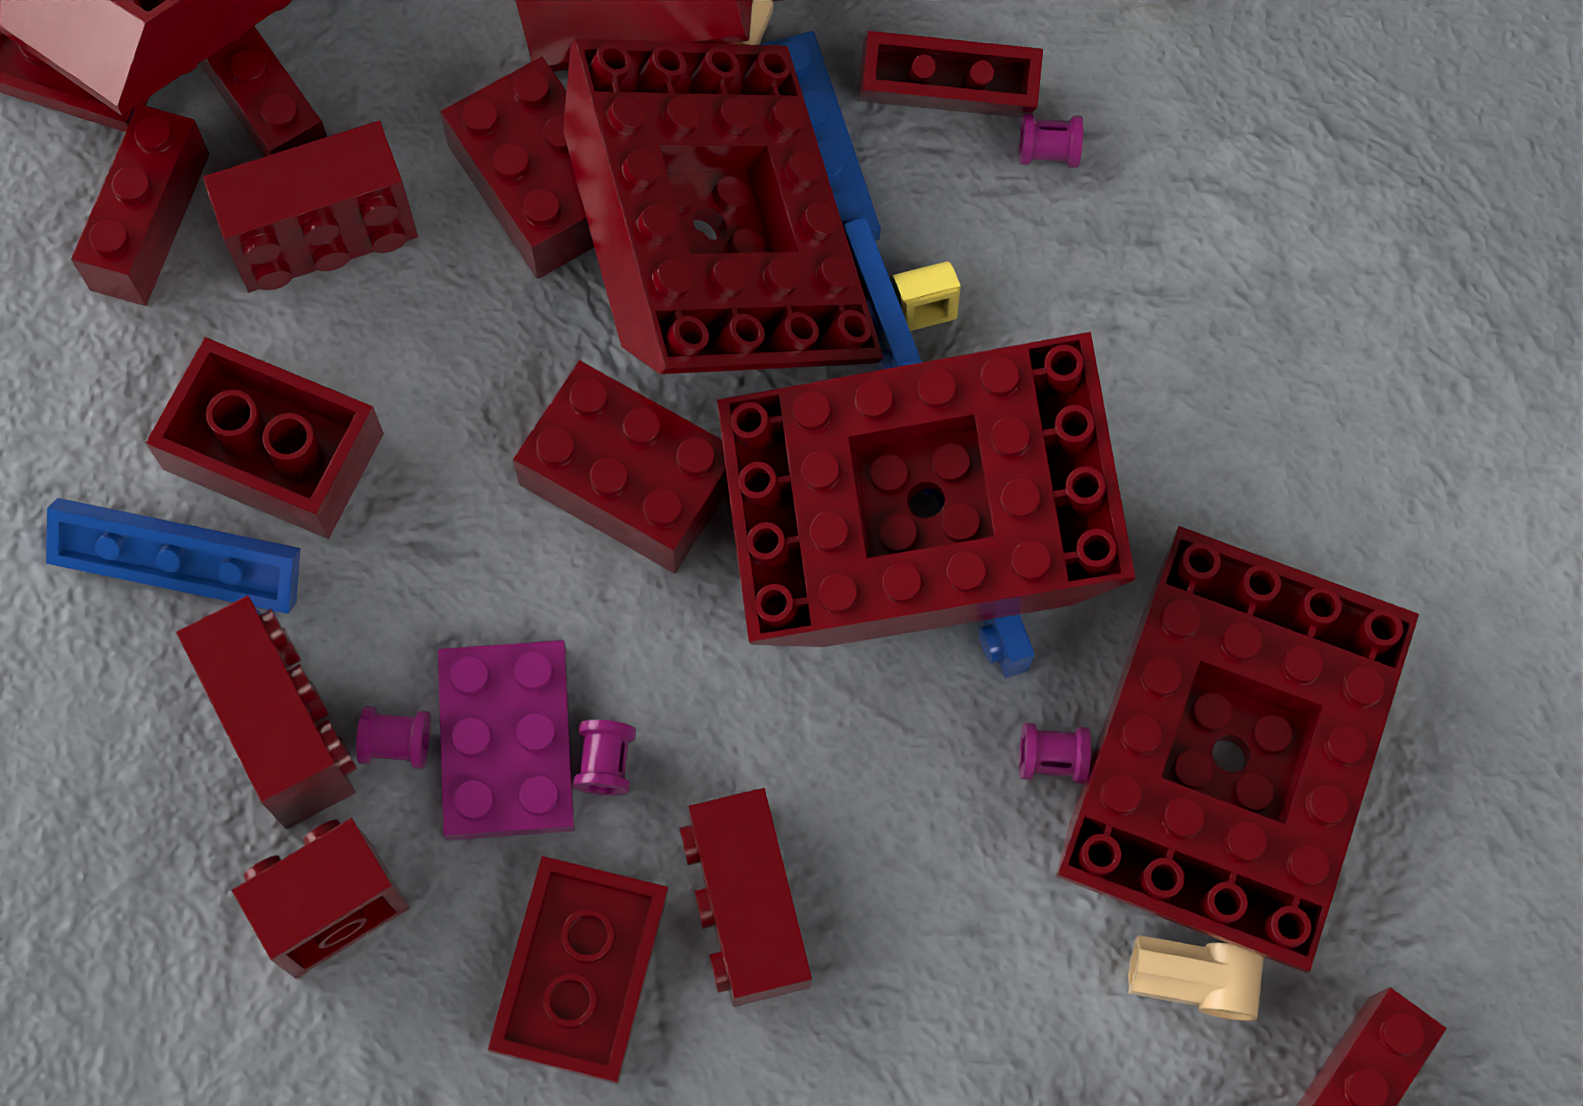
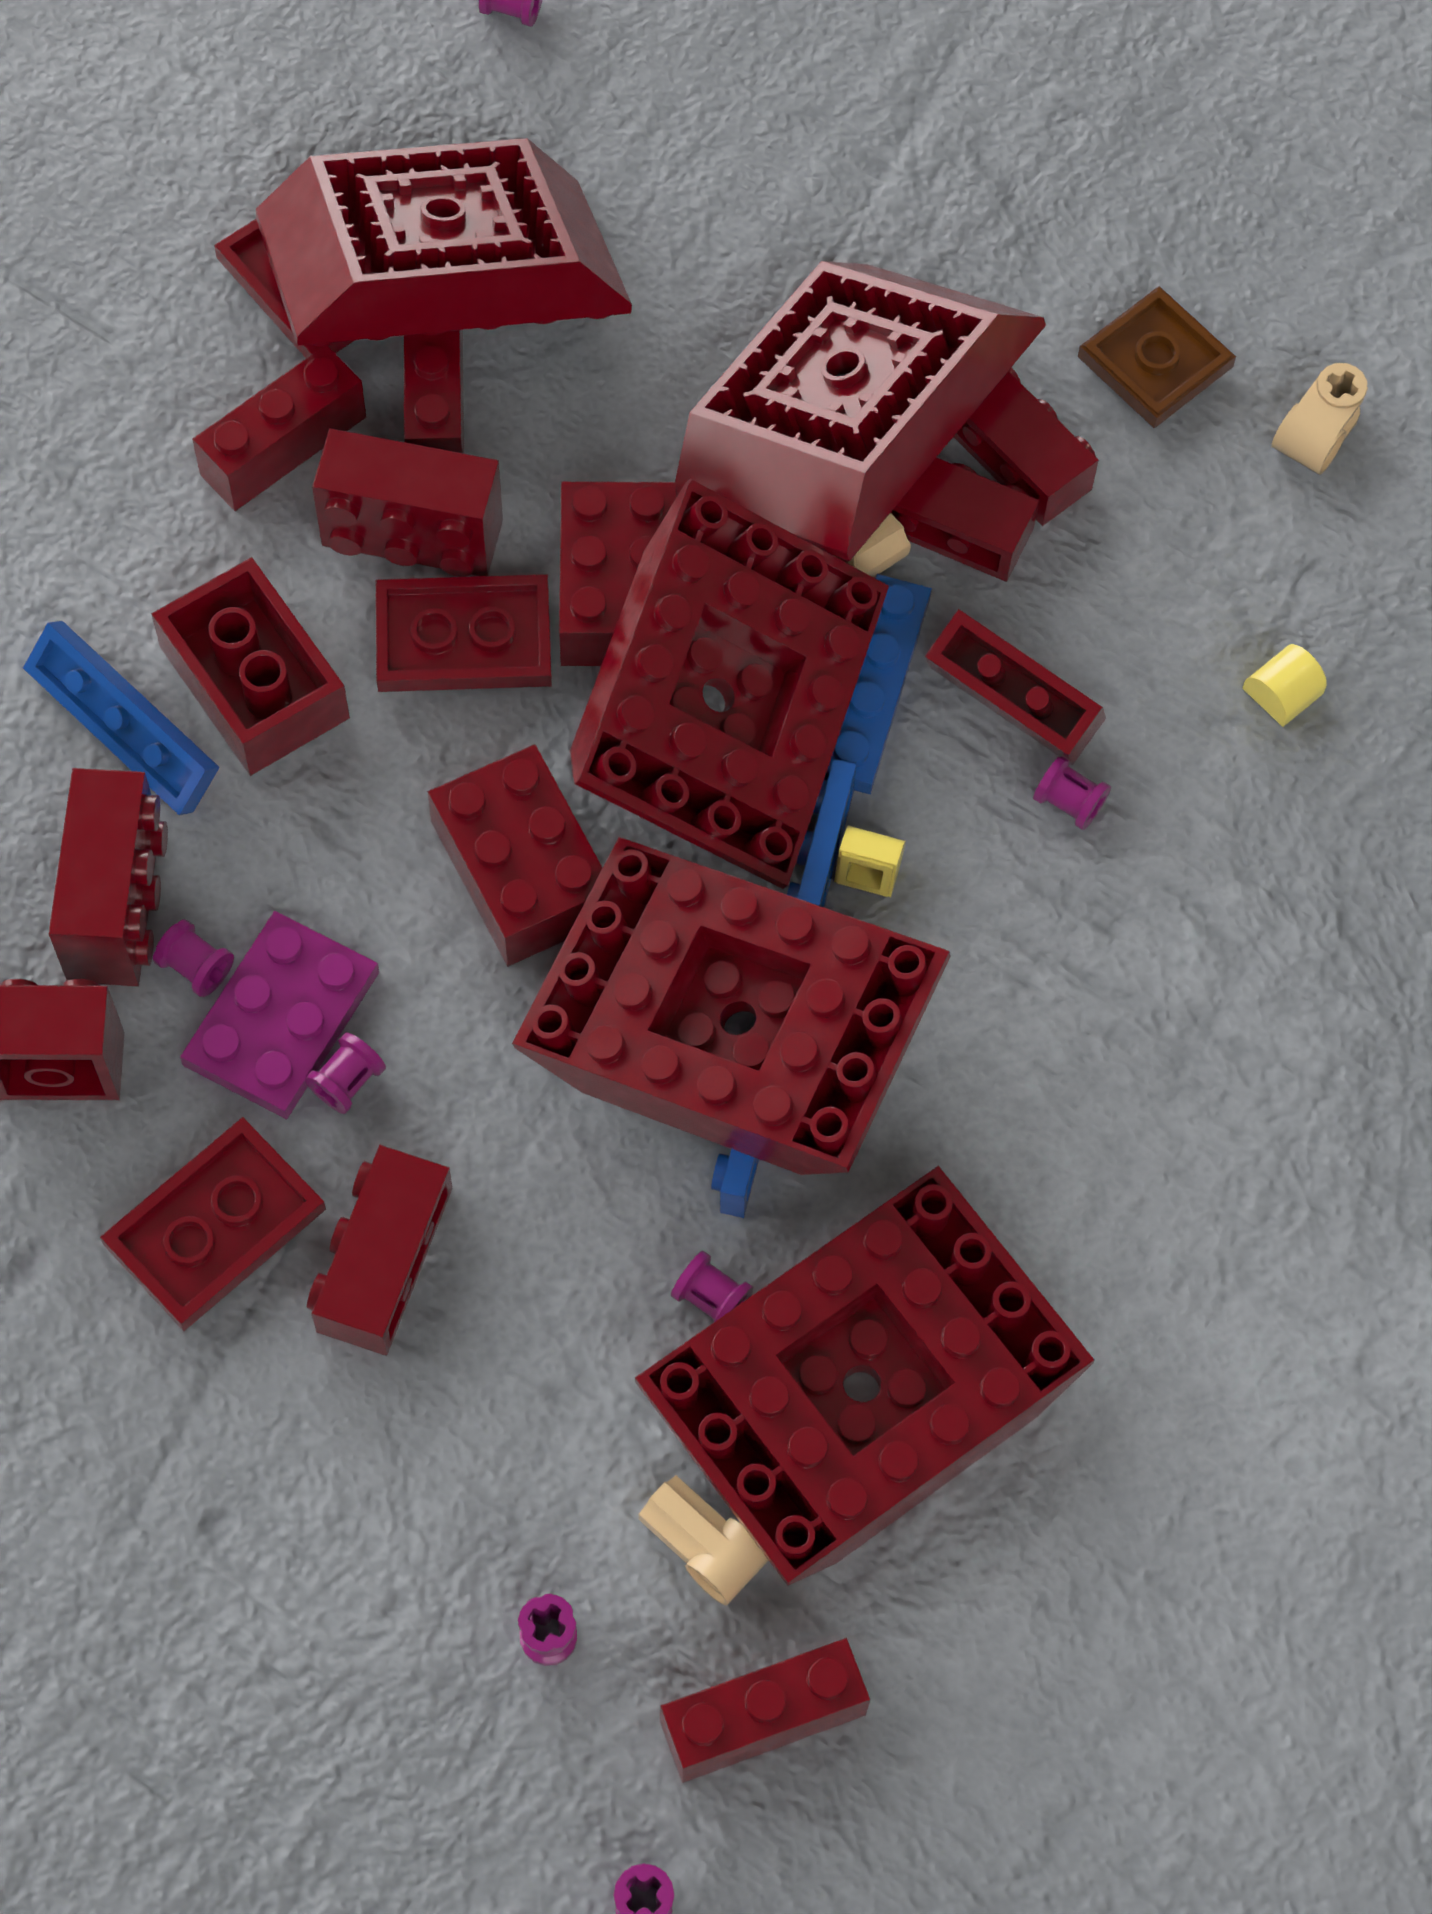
camera: 35 degrees right, 5 degrees down
(435, 298) = (463, 633): none -> dark red plate

